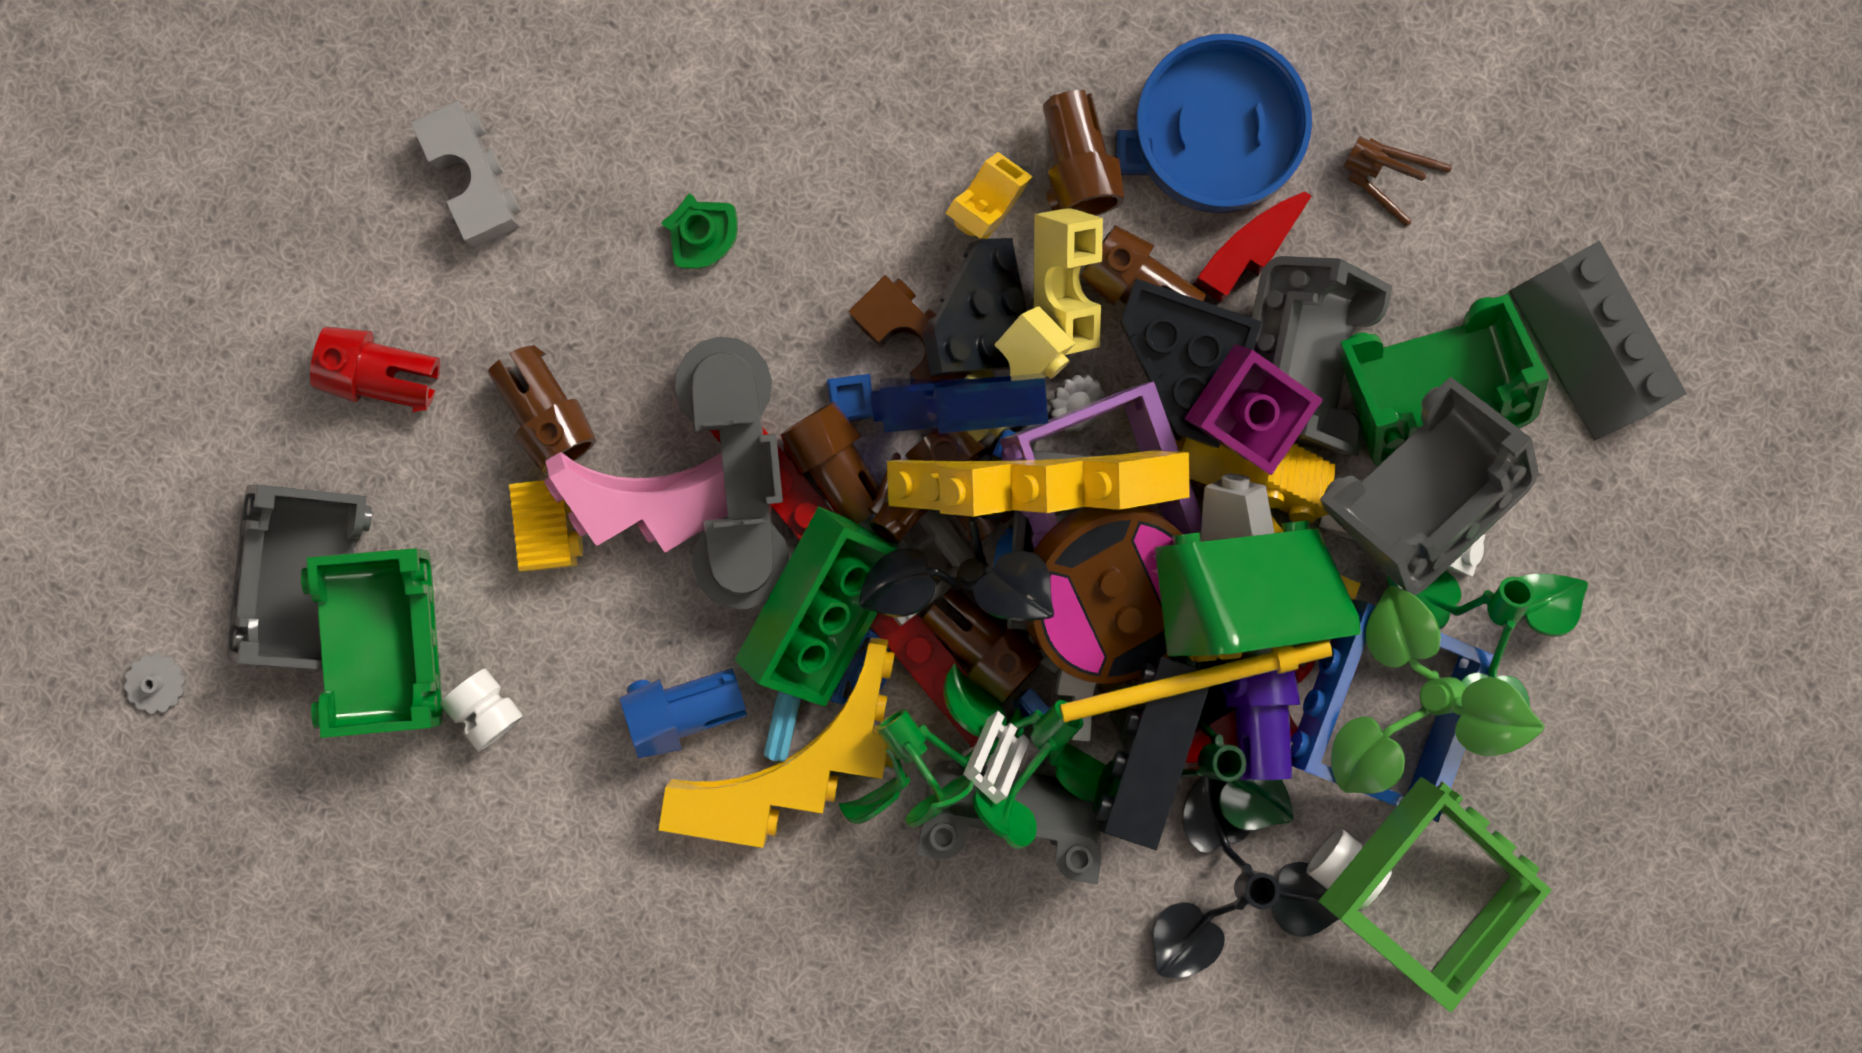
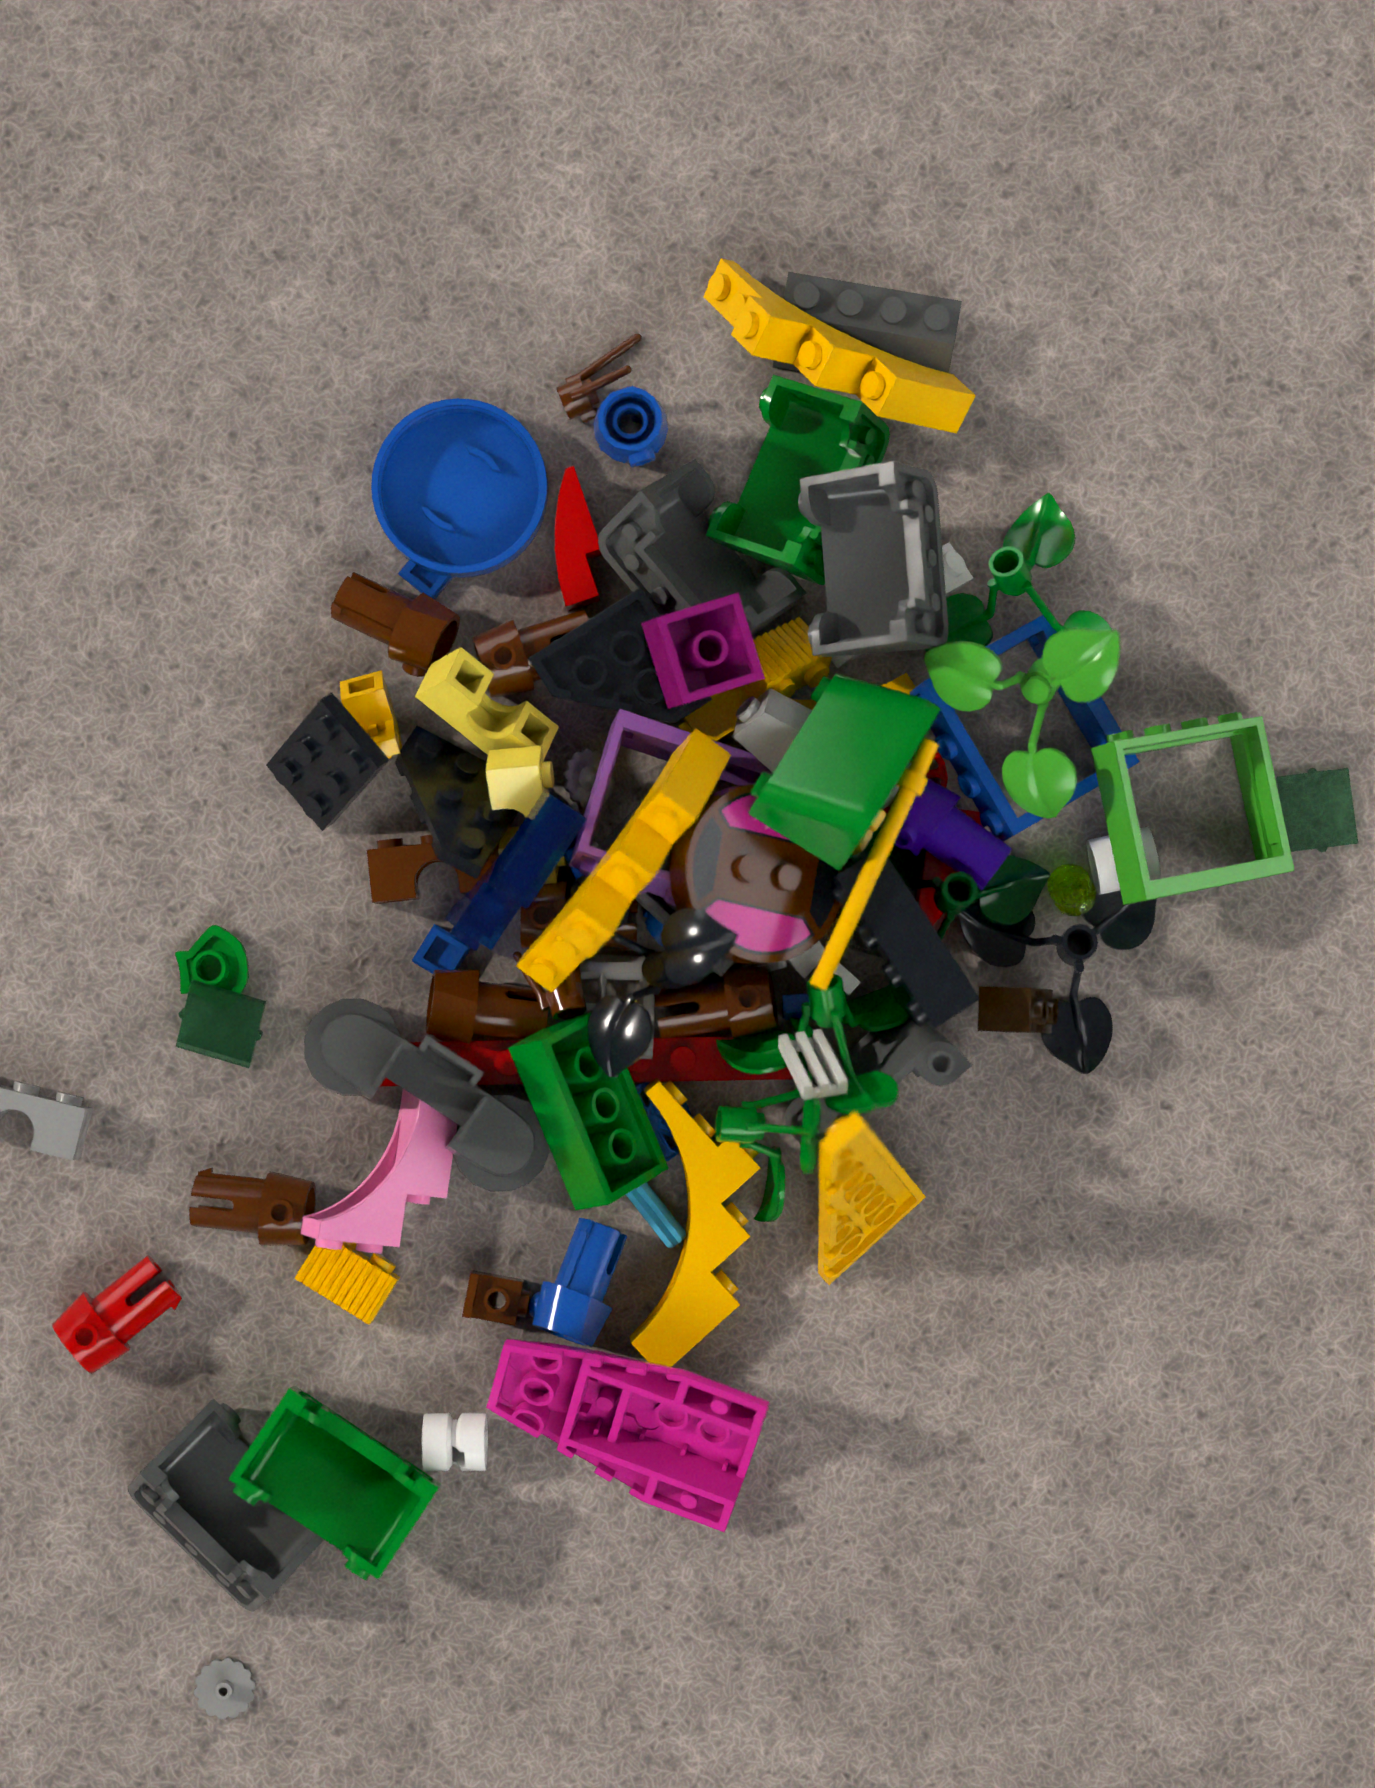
camera: 50 degrees left, 0 degrees up
(610, 846) = (642, 1422): none -> dark pink wedge
(619, 634) = (478, 1292): none -> reddish brown brick
(661, 271) = (220, 1023): none -> clear green piece
(924, 876) = (859, 1195): none -> yellow wing
(929, 188) = (327, 761): none -> black plate
(1167, 882) = (1017, 1009): none -> dark brown brick
(1286, 855) = (1077, 898): none -> clear neon green wheel
(1397, 220) = (644, 409): none -> blue piece
(1511, 991) = (1318, 809): none -> clear green piece
(1564, 330) = (832, 359): none -> yellow arch

